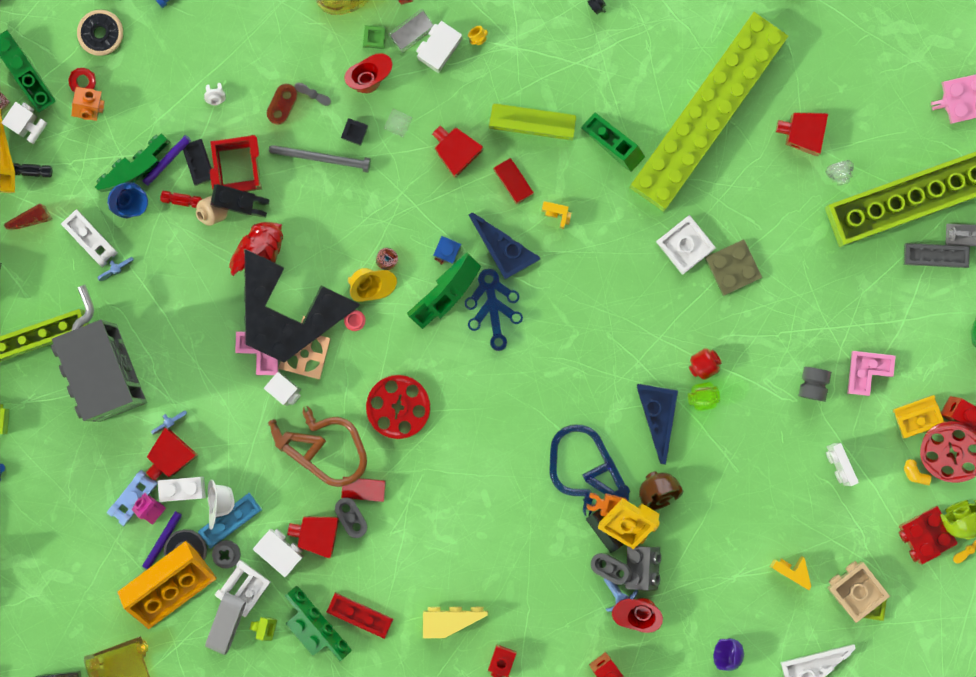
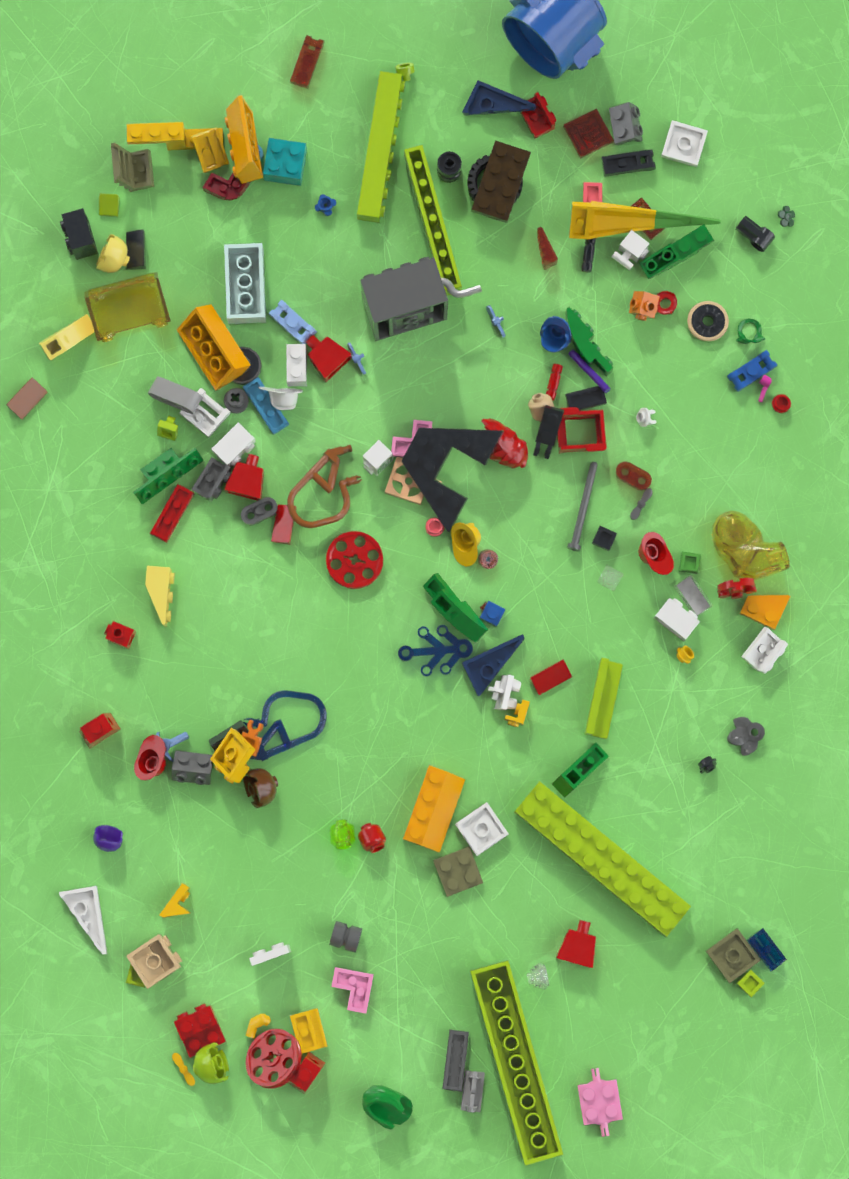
camera: 90 degrees right, 5 degrees down
(88, 237) = (525, 299): white plate -> none
(91, 555) = (245, 283): none -> light aqua brick
(148, 508) = (281, 335): dark pink bracket -> none
(162, 540) = (249, 343): dark purple bar -> none
(318, 573) = (212, 479): none -> dark grey bracket
(456, 149) = (582, 627): red torso -> none
(533, 231) = (502, 691): none -> white hips
(612, 568) = (193, 739): dark grey plate -> none
(659, 412) = (331, 793): dark blue wing -> none
(668, 298) = (434, 809): none -> light orange slope

